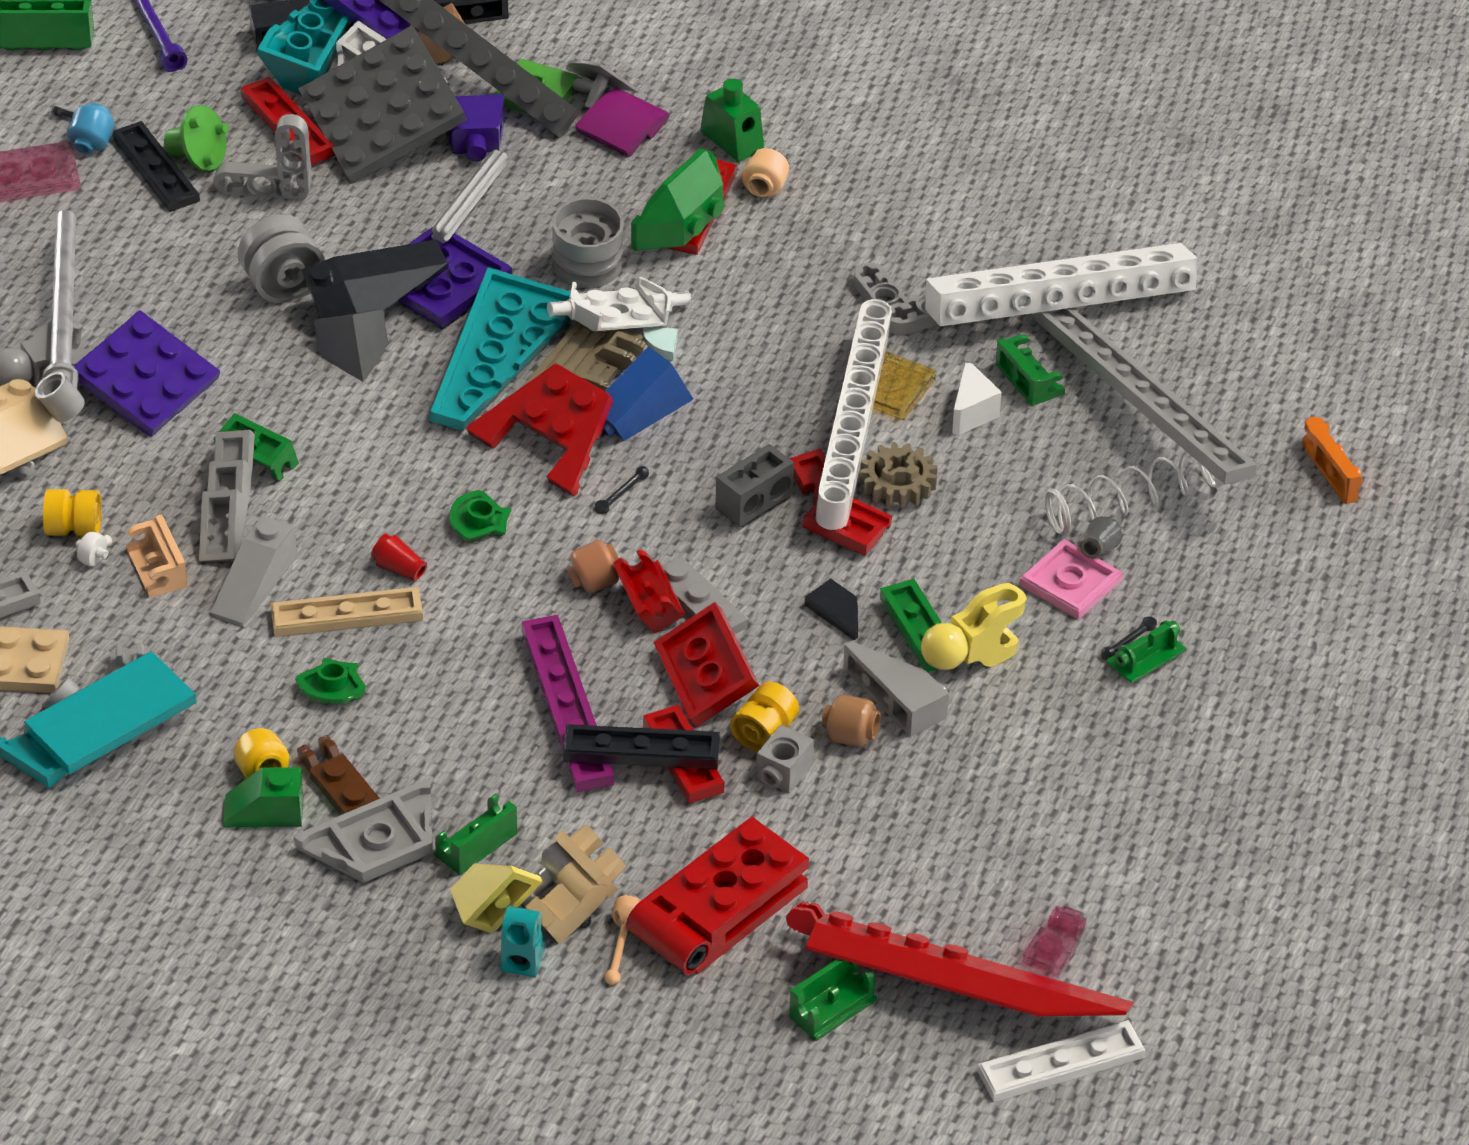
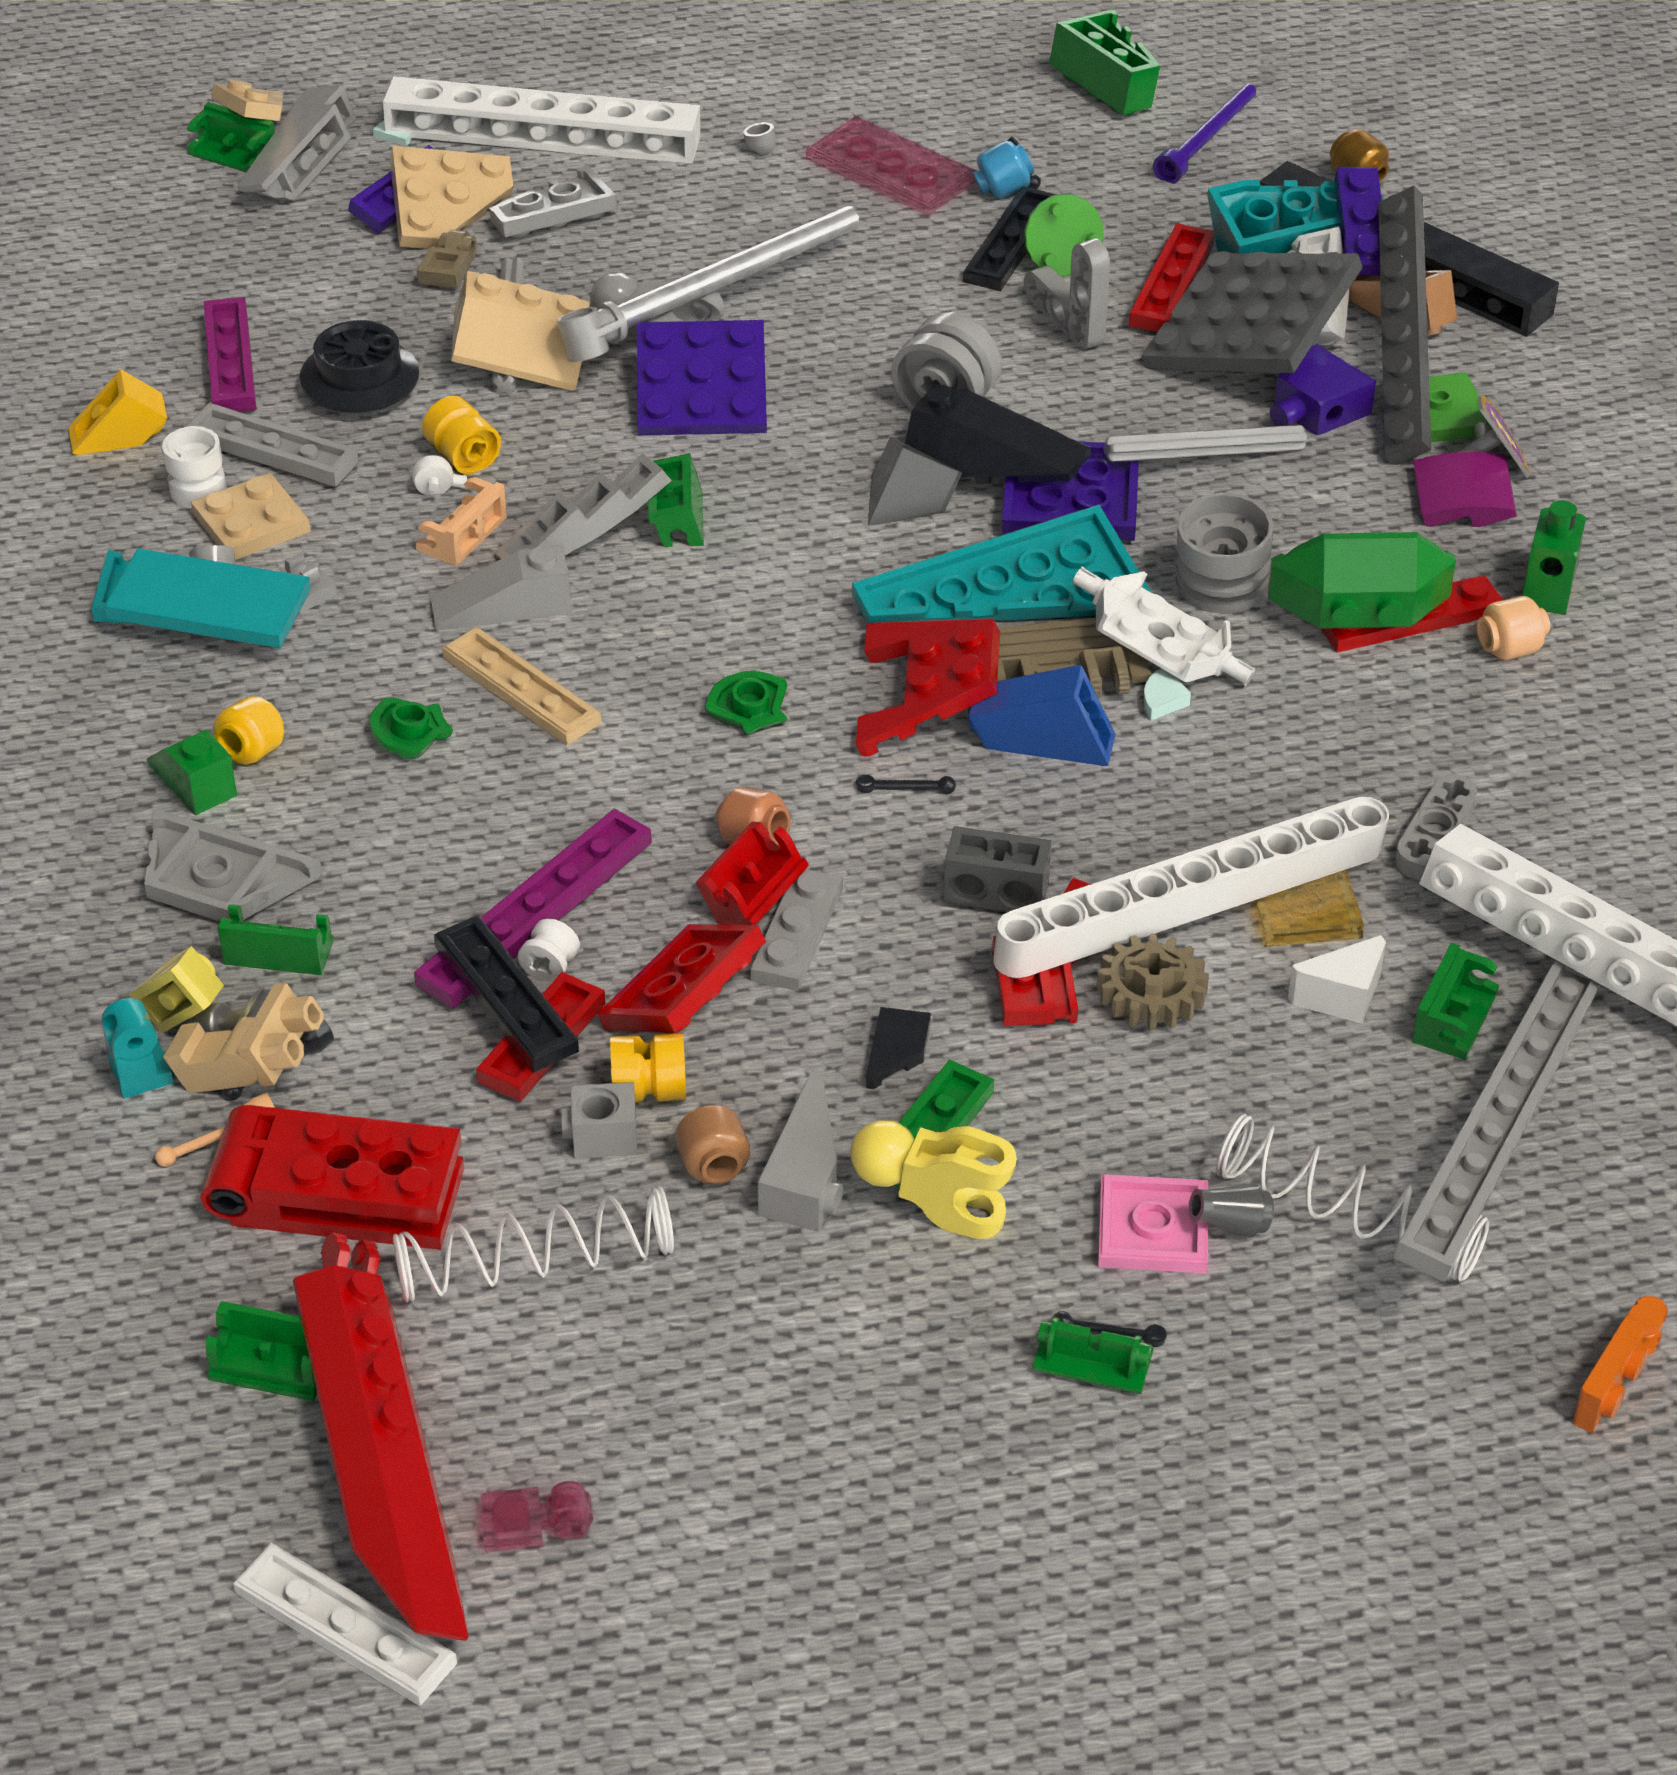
camera: 55 degrees right, 0 degrees up
(336, 777) = (278, 799): reddish brown hinge -> none
(398, 557) = (626, 674): red cone -> none
(614, 710) = (548, 949): none -> white wheel
(879, 779) = (657, 1204): none -> white piece

